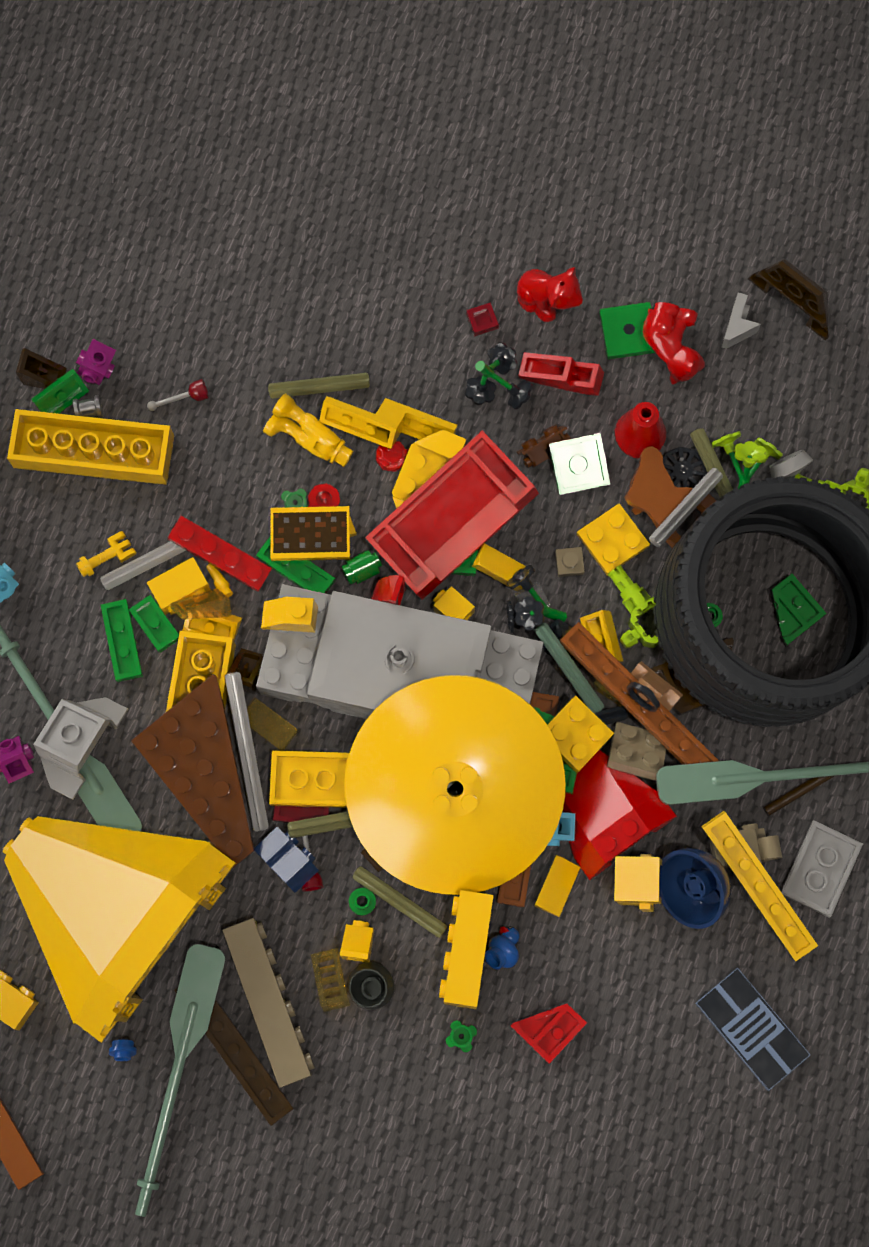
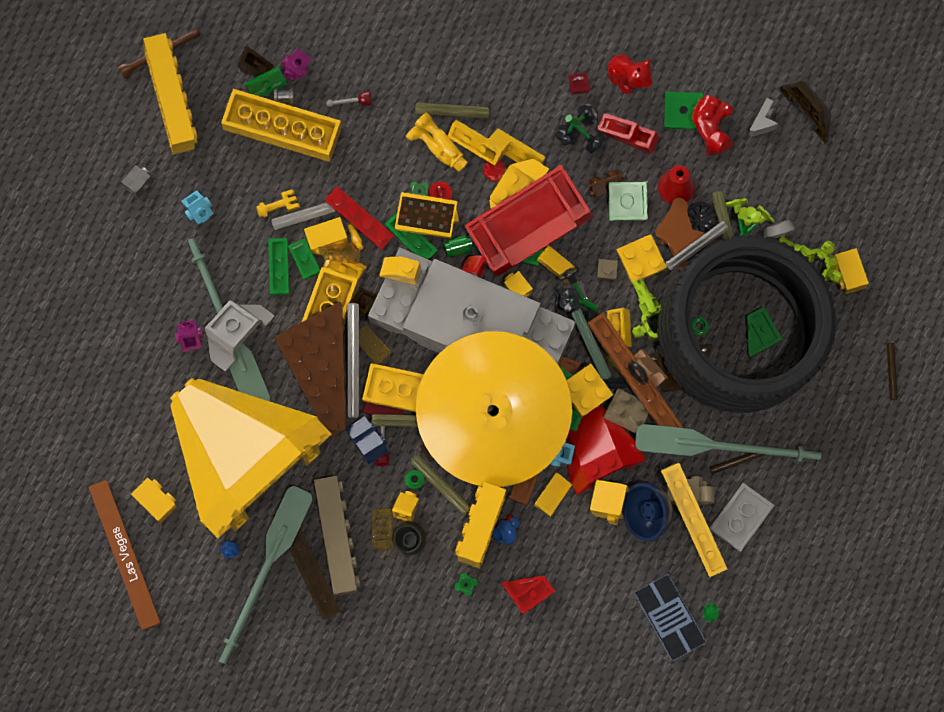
camera: 10 degrees right, 0 degrees up
(807, 1011) = (710, 612): none -> green plate

